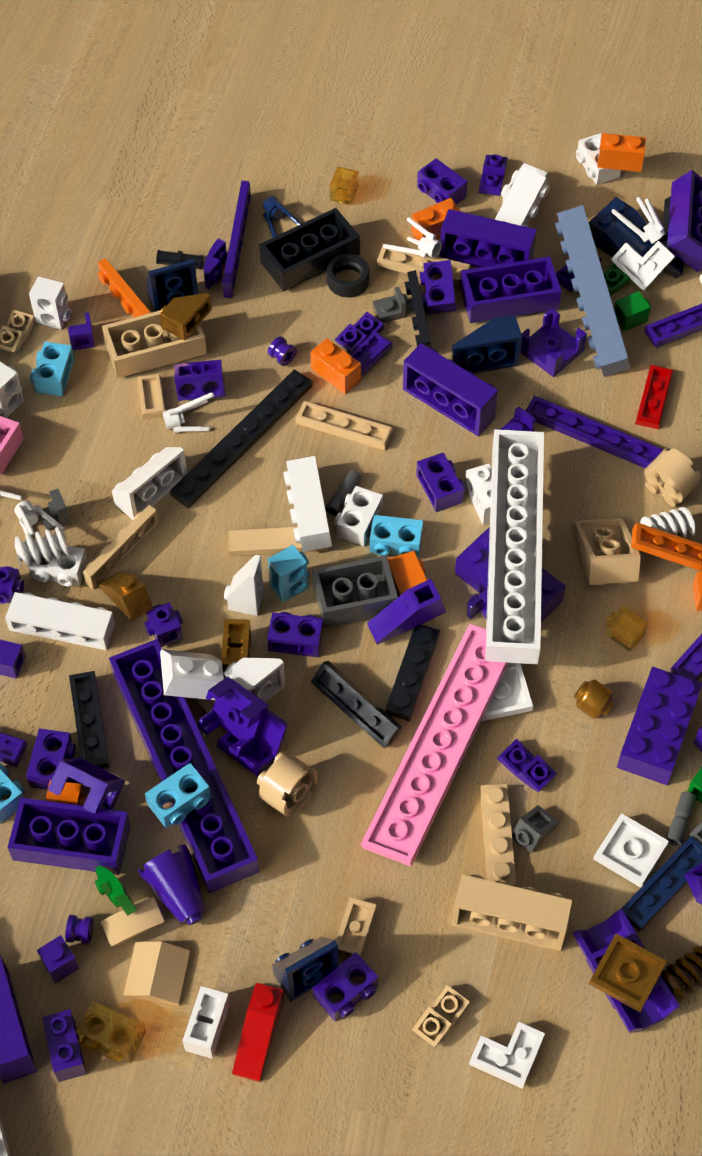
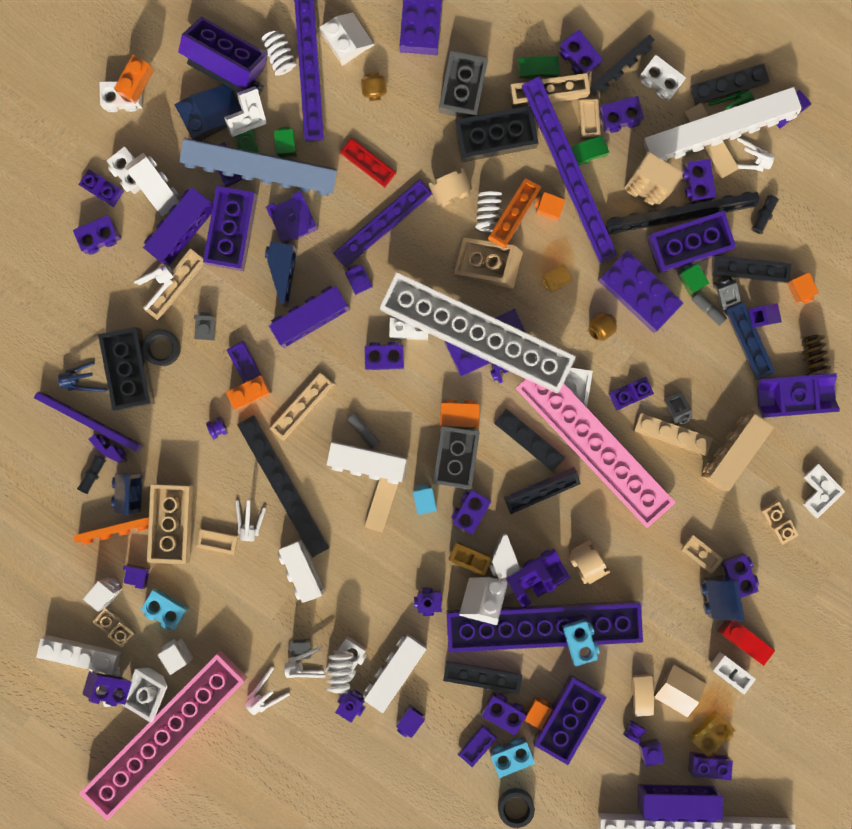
camera: 65 degrees left, 30 degrees up
(103, 784) = (538, 694): dark purple panel -> none
(109, 884) = (614, 703): green slope -> none
(125, 542) = (352, 617): tan plate -> none
(127, 594) = (395, 622): pearl gold slope -> none
(175, 884) = (629, 660): dark purple cone -> none
(185, 314) = (166, 496): pearl gold slope -> none
(199, 379) = (223, 502): dark purple brick -> none
(246, 589) = (426, 536): white slope -> none
(344, 185) = (67, 315): clear yellow brick -> none
(355, 334) = (221, 360): dark purple slope -> none
(358, 515) = (393, 424): white brick -> none
(397, 531) = (414, 406): medium azure brick -> none
(407, 611) = (489, 428): dark purple slope -> none
(416, 305) = (229, 310): black plate -> none
(432, 218) = (136, 256): orange brick -> none
(442, 286) = (208, 279): dark purple brick -> none
(627, 972) = (807, 397): pearl gold plate -> none
(631, 850) = (718, 352): white plate -> none
(653, 230) = (218, 90): white plant -> none

